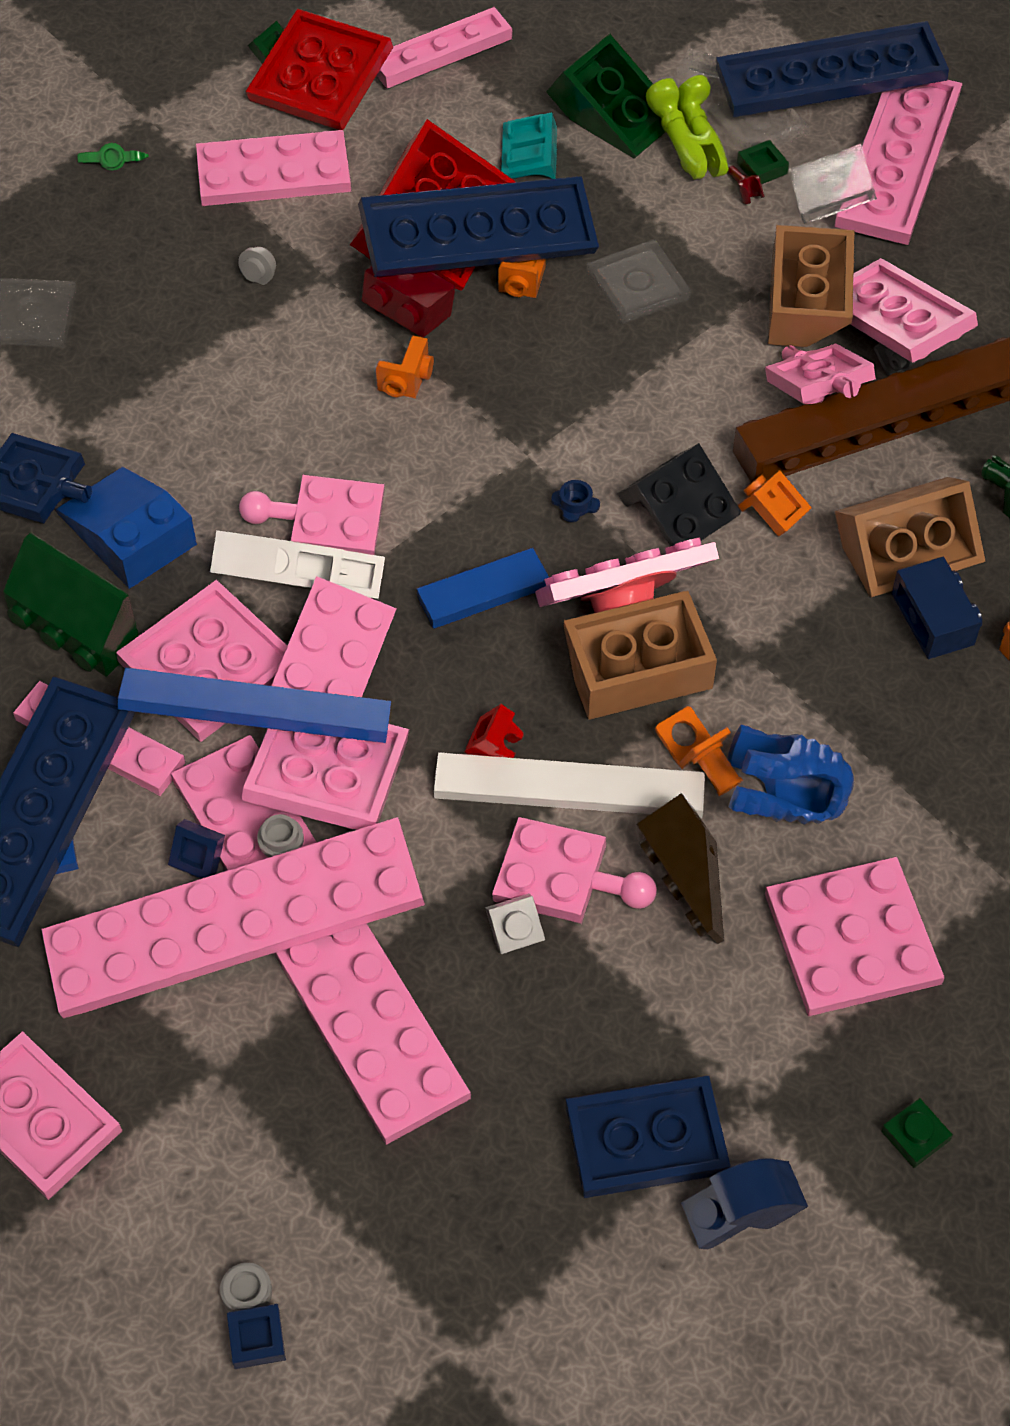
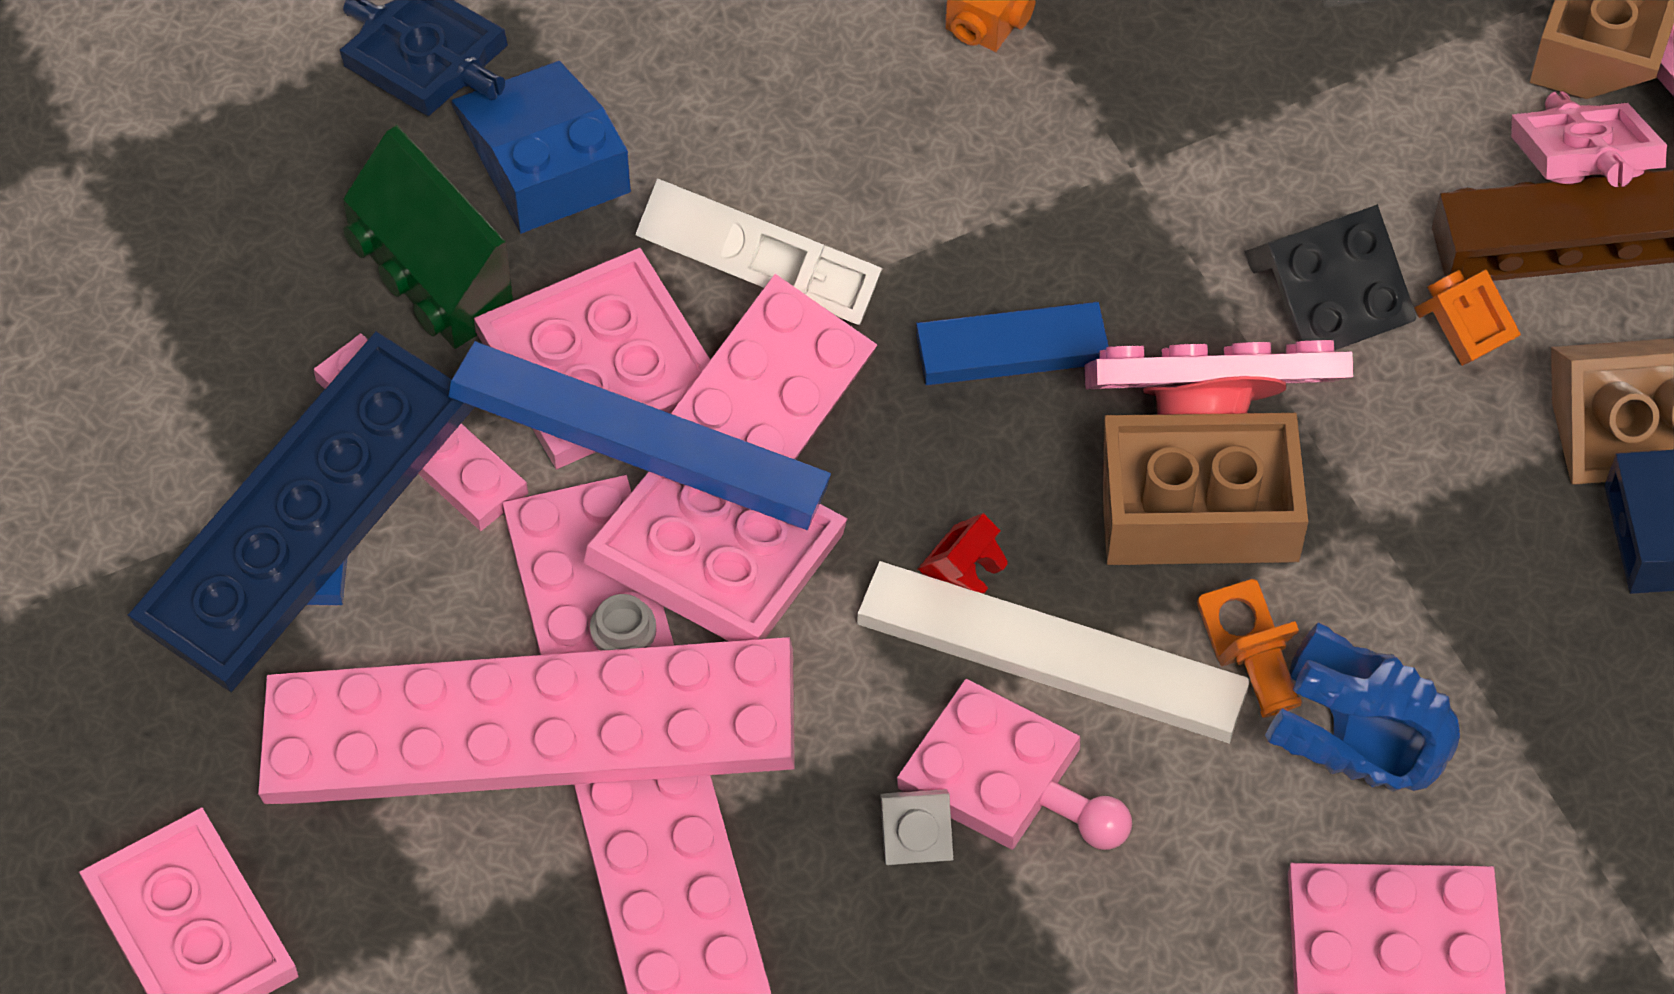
camera: 15 degrees right, 0 degrees up
(196, 849) = (505, 616): dark blue plate -> none
(327, 513) = (824, 189): bright pink plate -> none
(578, 491) = (1185, 234): dark blue plate -> none
(691, 859) = (1191, 799): dark brown slope -> none

